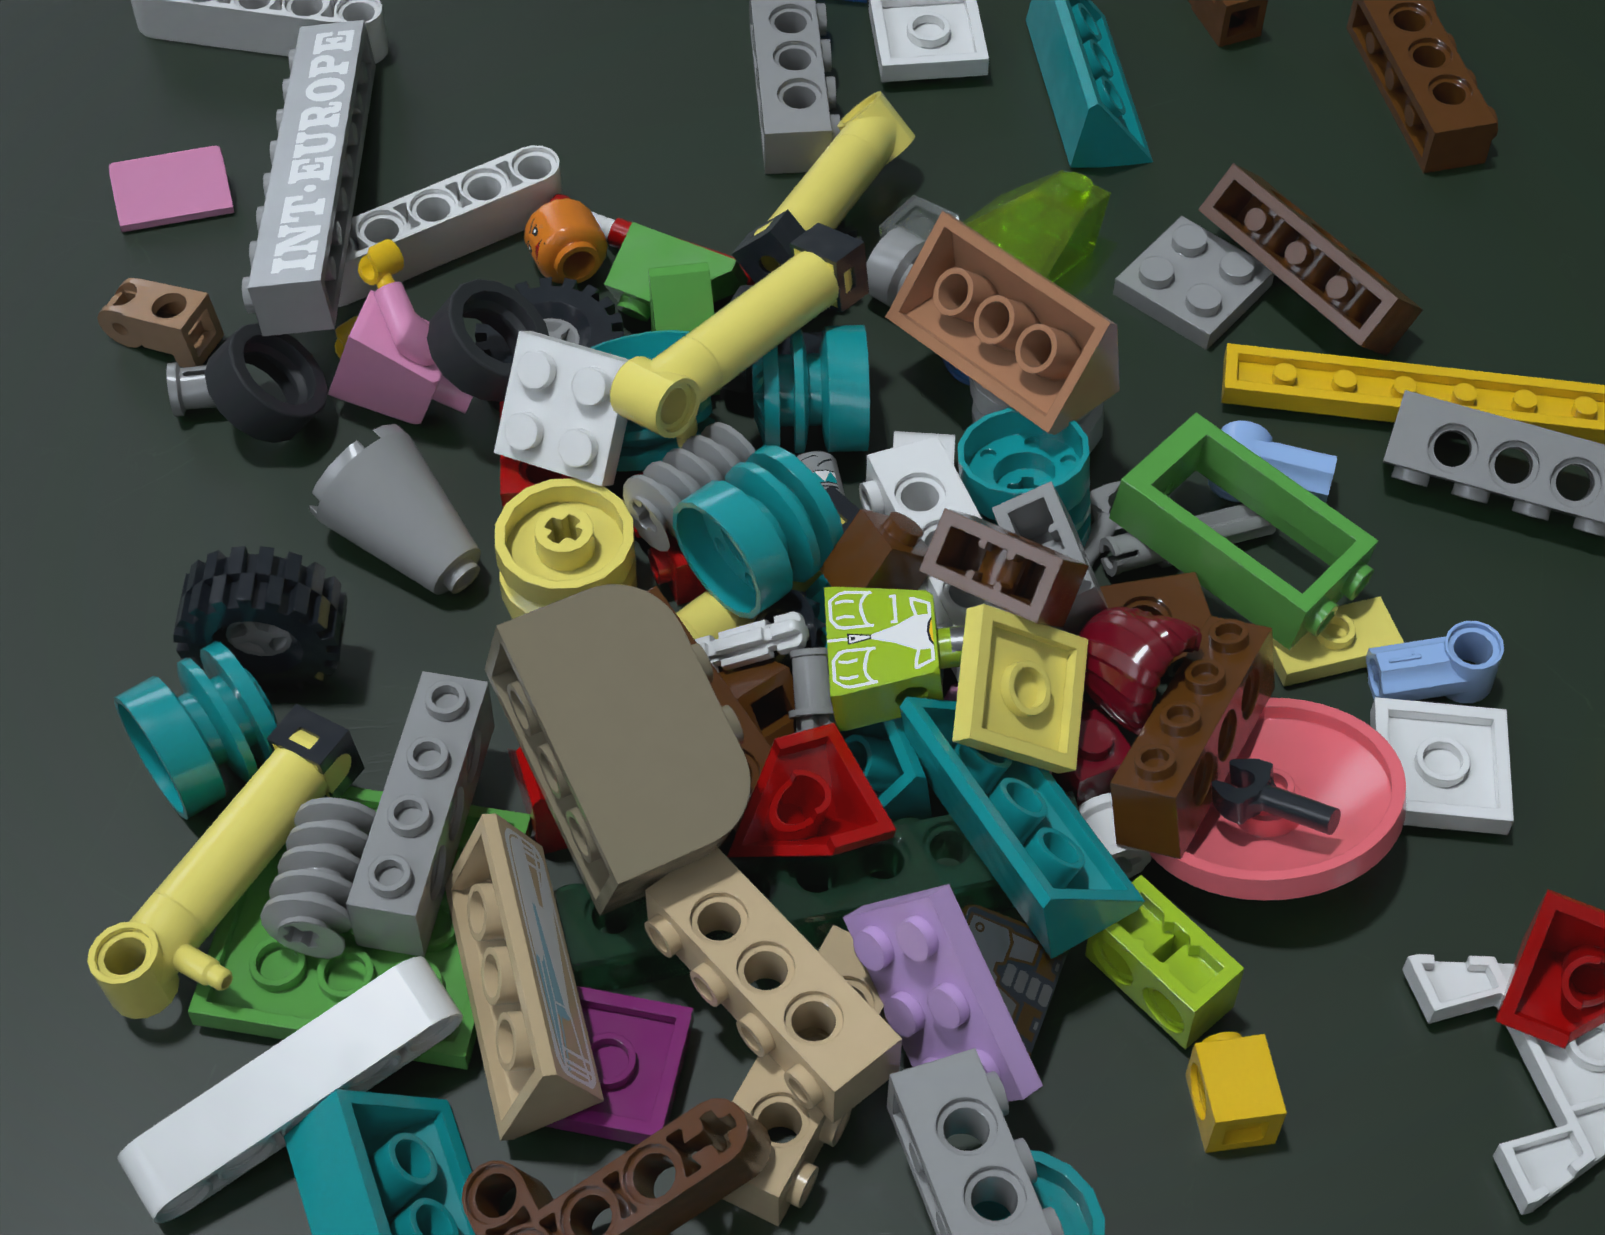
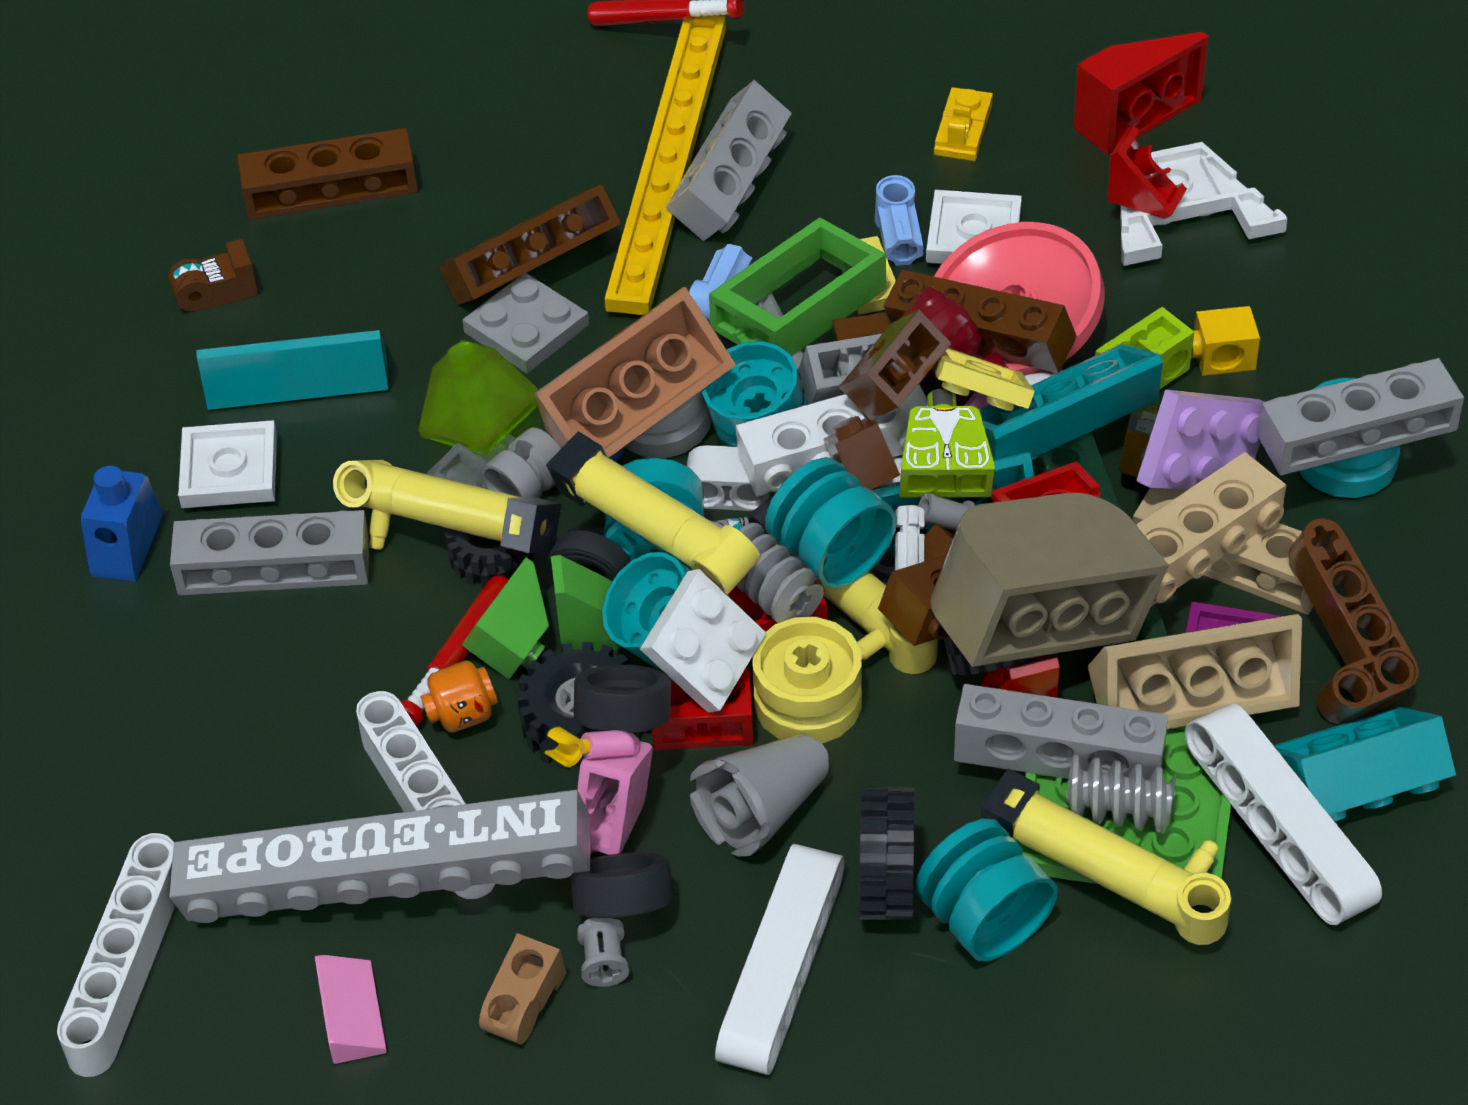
camera: 85 degrees left, 5 degrees down
(136, 535) = (780, 959): none -> white beam
(1257, 793) = (1039, 277): black bar -> none

